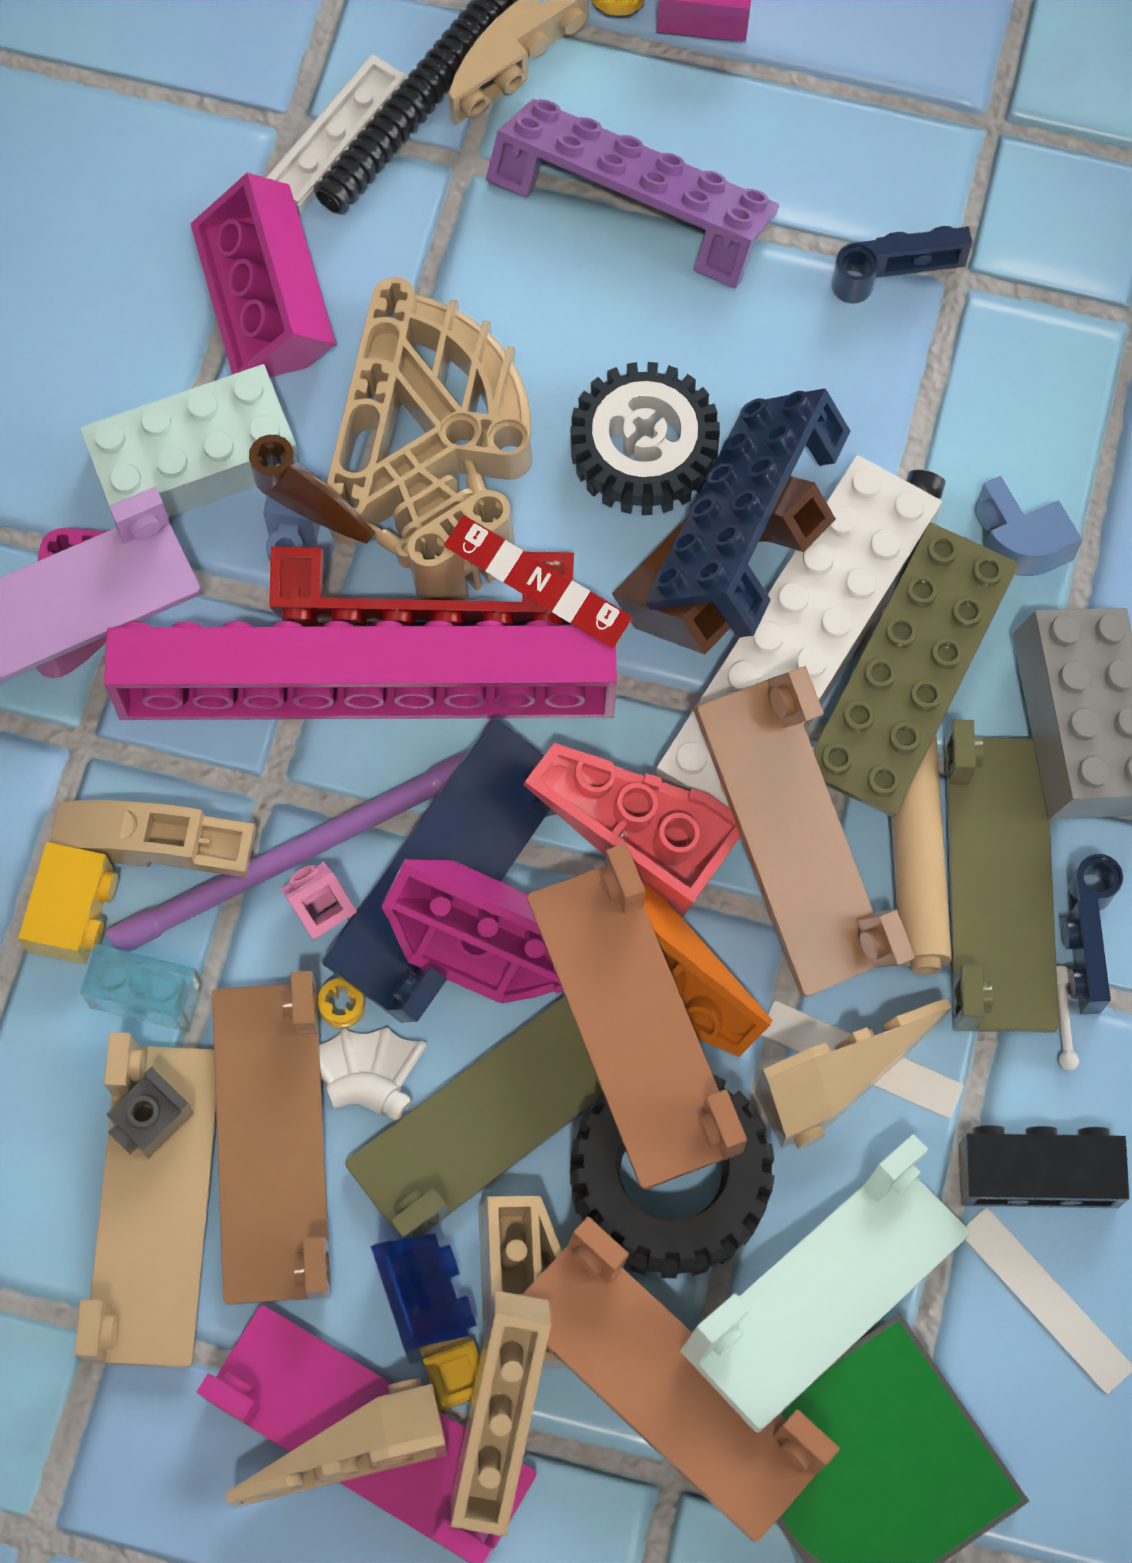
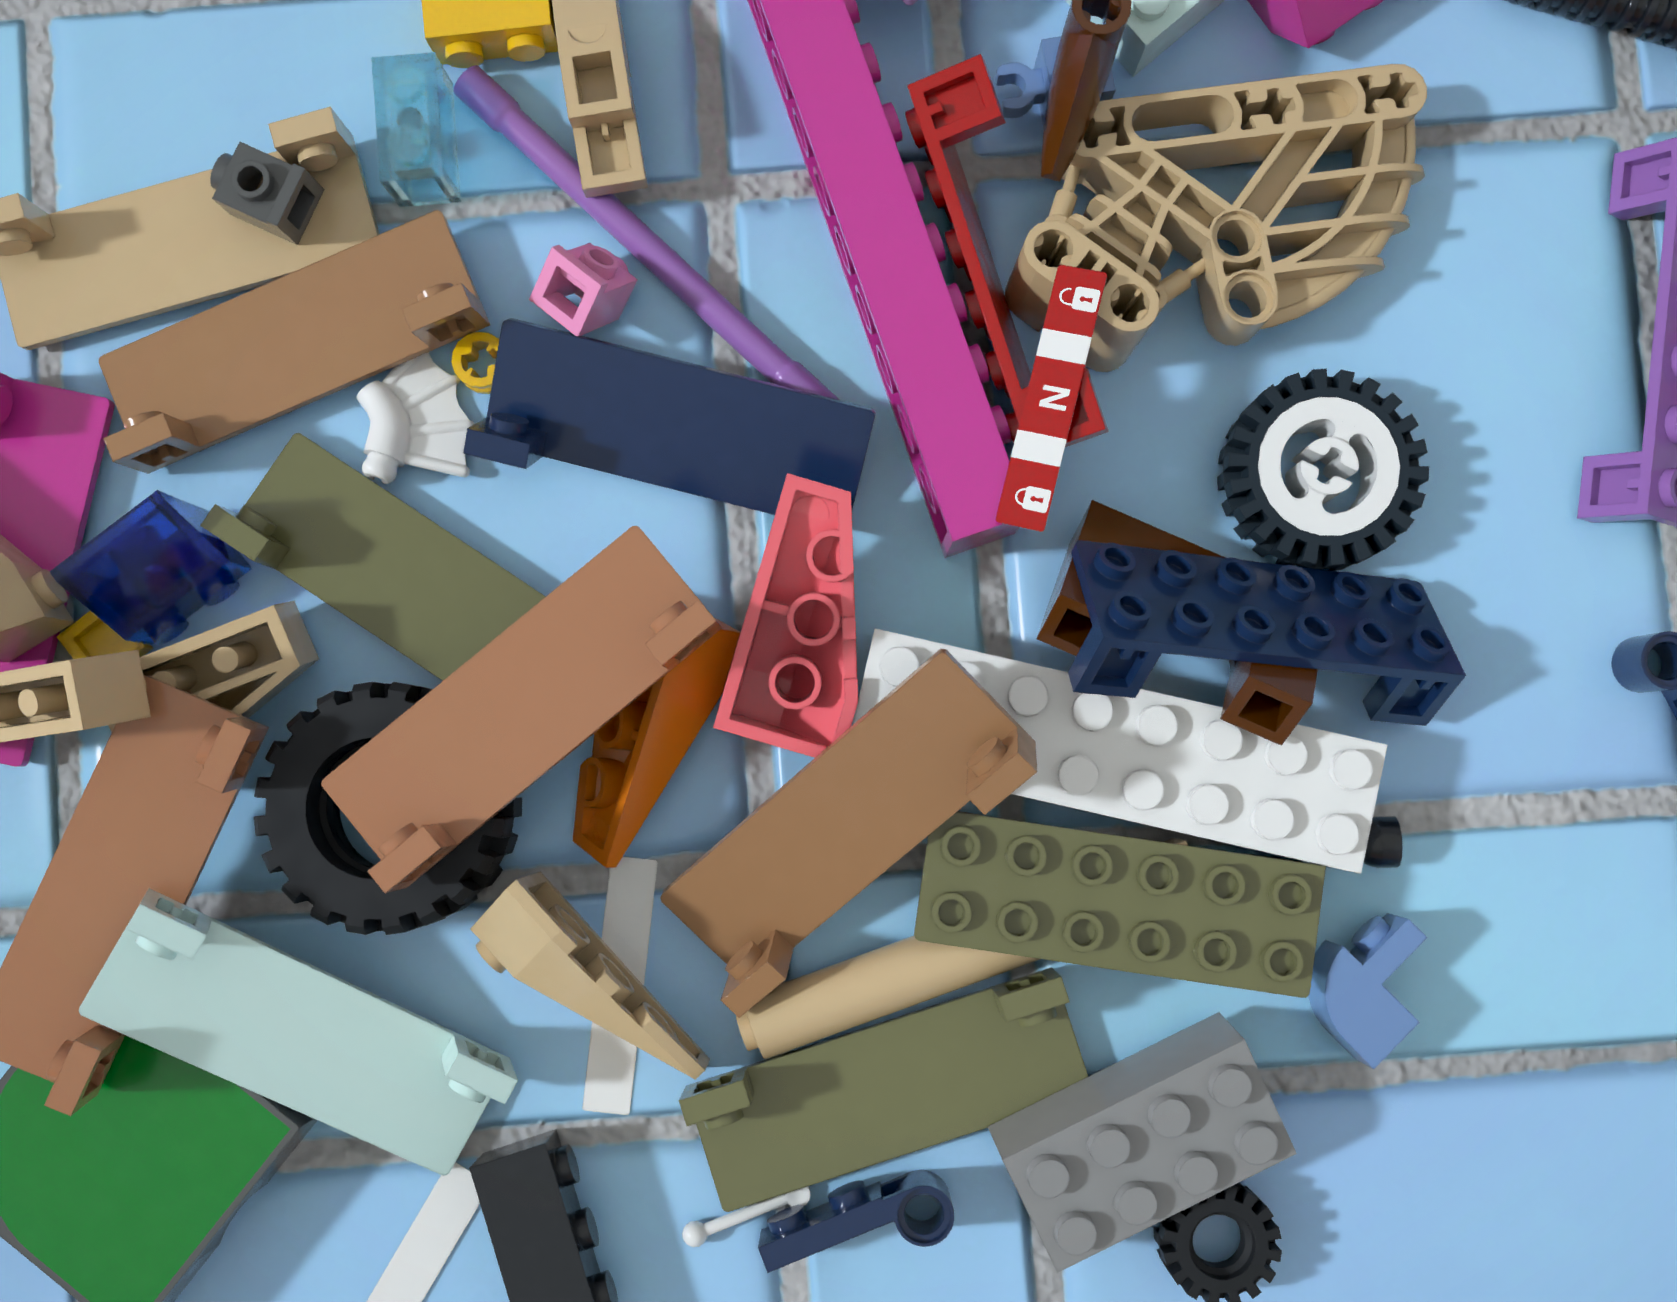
camera: 75 degrees right, 15 degrees up
(469, 930) = (604, 464): dark pink wedge -> none

